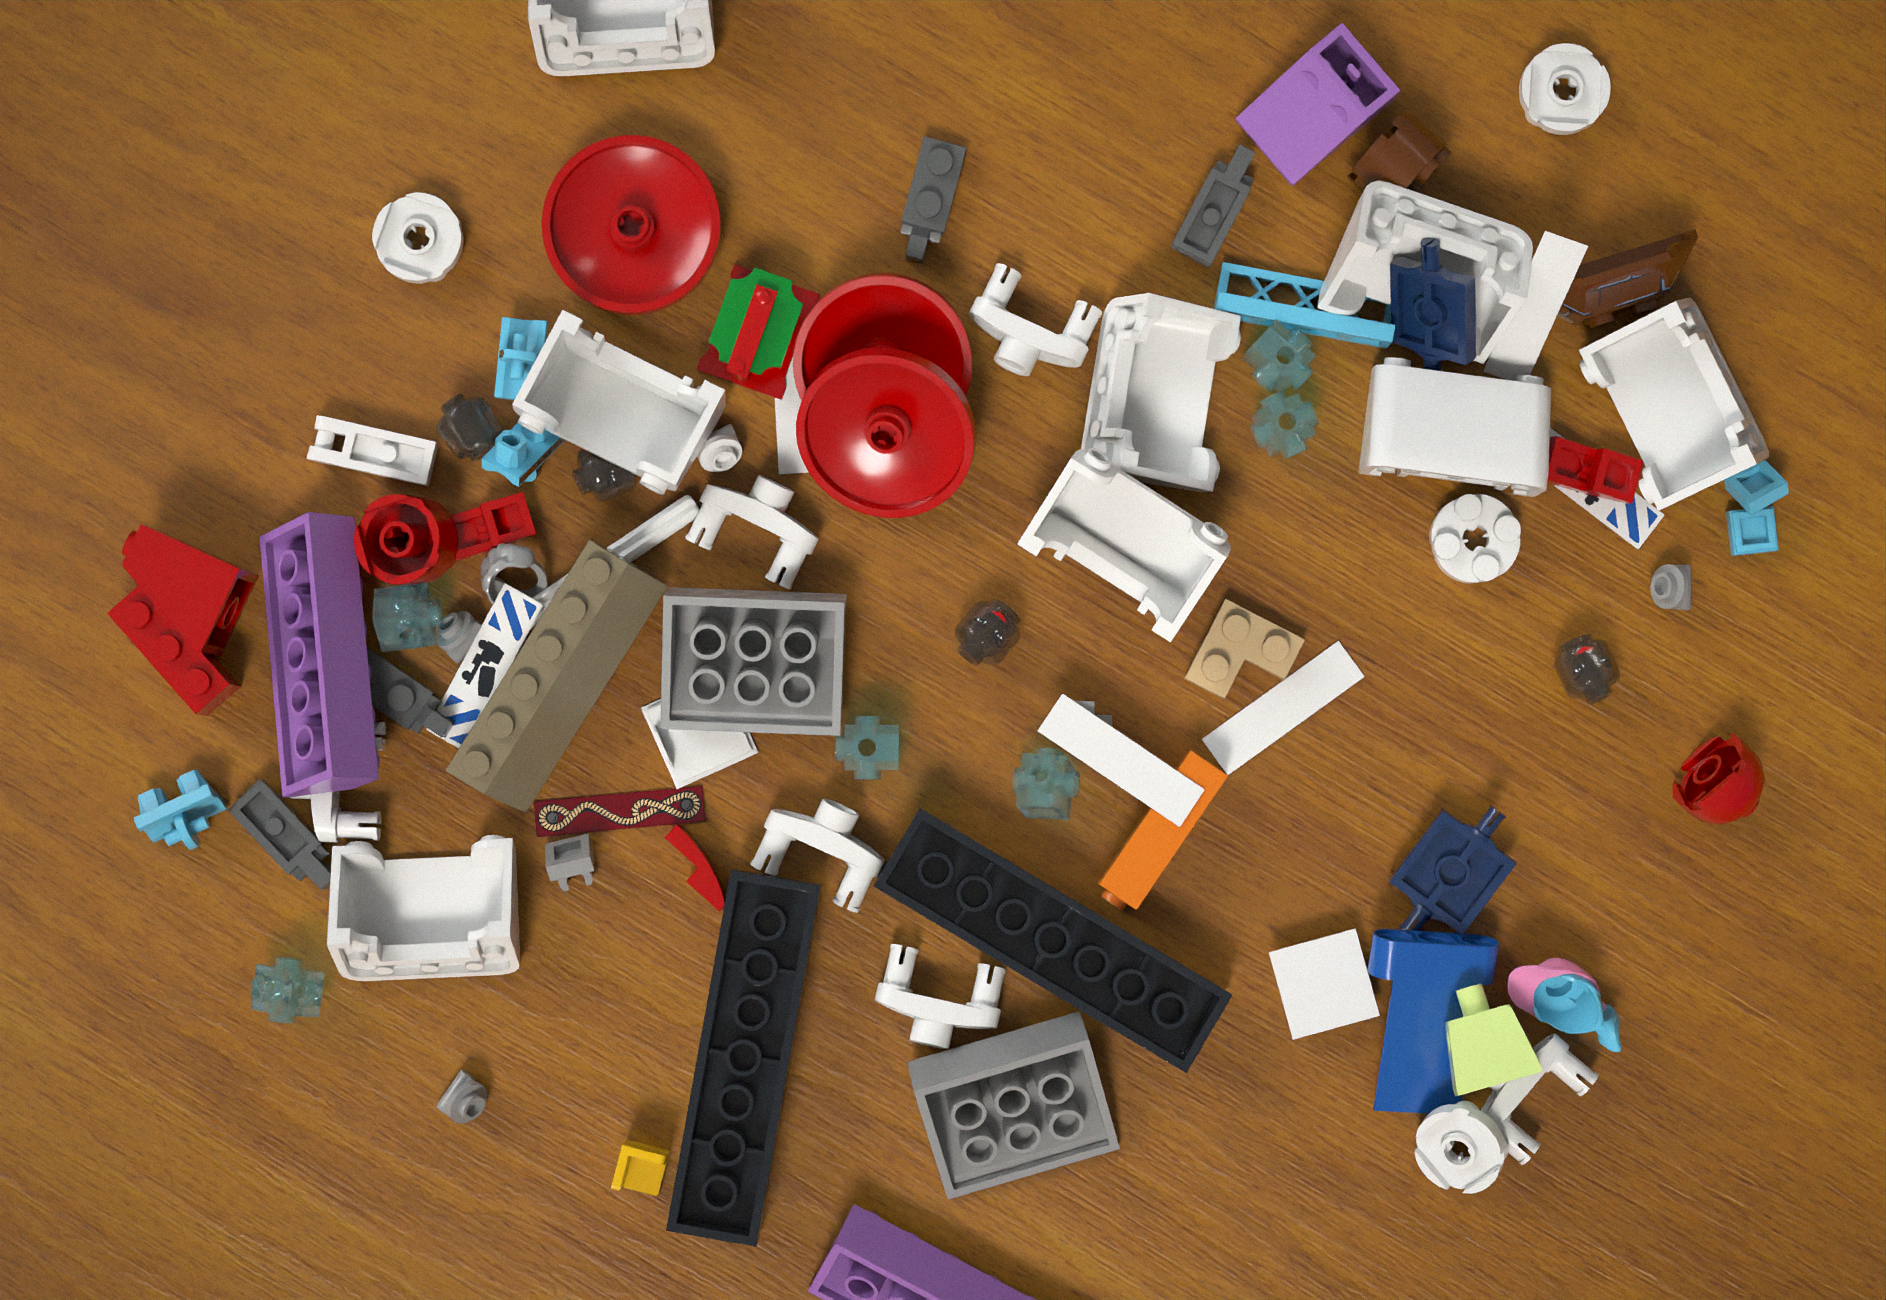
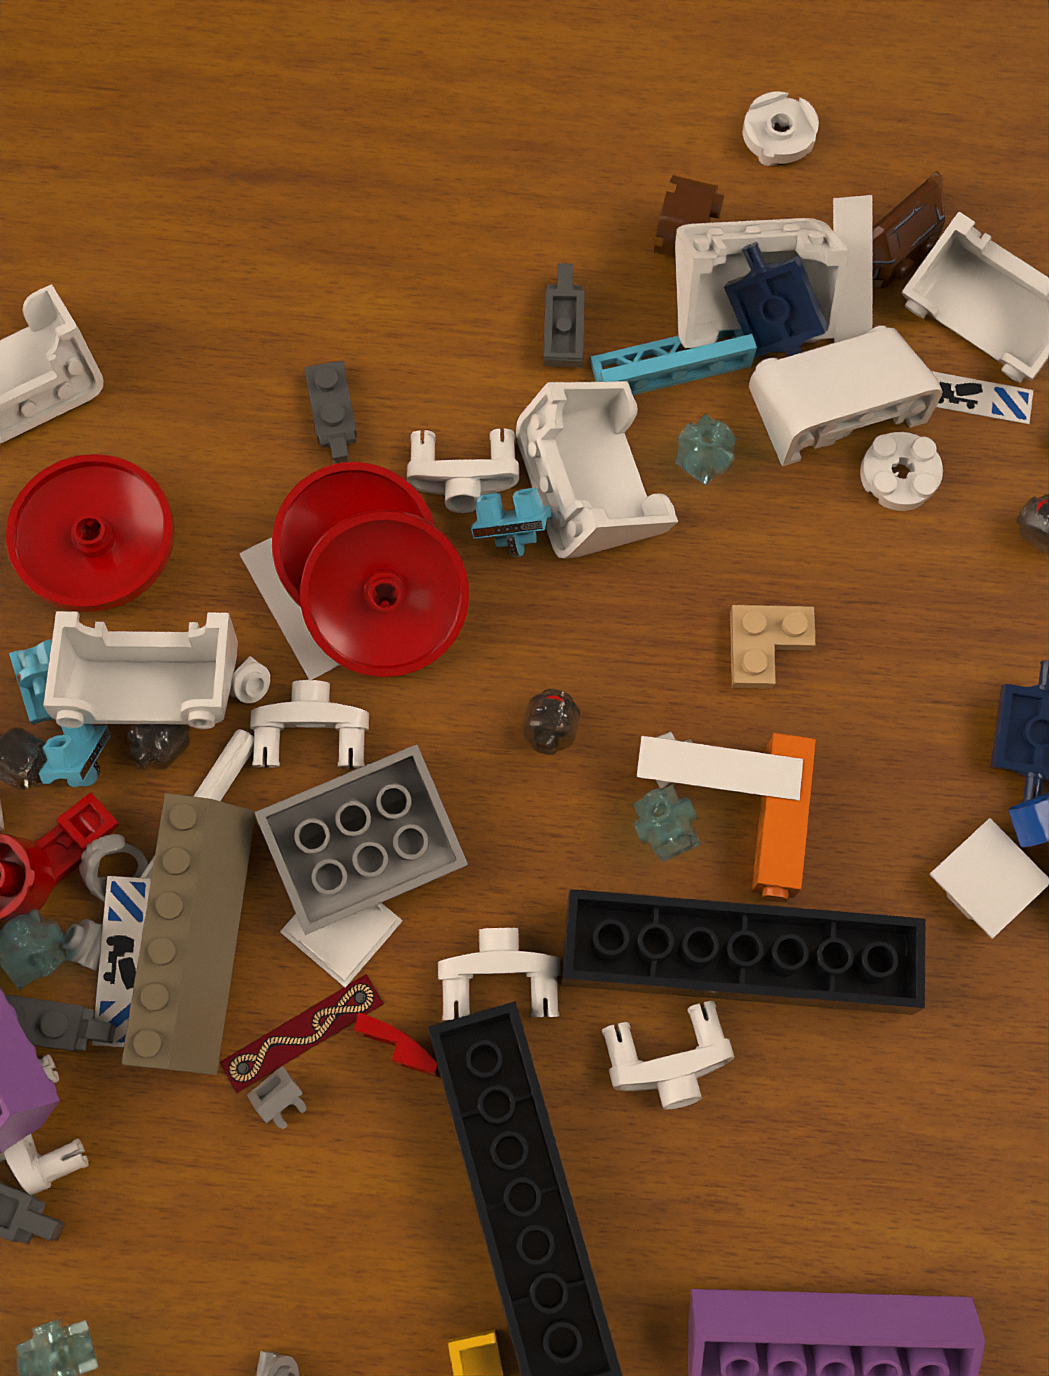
camera: 30 degrees left, 15 degrees down
(424, 913) = (159, 1217): white windscreen -> none
(757, 331) = (237, 570): piece -> none
(886, 753) = (501, 849): clear light blue brick -> none
(1013, 1105) = (785, 1121): light grey slope -> none
(1048, 413) = (511, 527): none -> medium azure hips
(1129, 538) = (633, 579): white windscreen -> none
(1283, 708) = (825, 671): white sticker -> none
(1286, 343) = (675, 400): clear light blue brick -> none
(1318, 104) = (603, 209): medium lavender slope -> none
(1593, 470) = (969, 378): red slope -> none

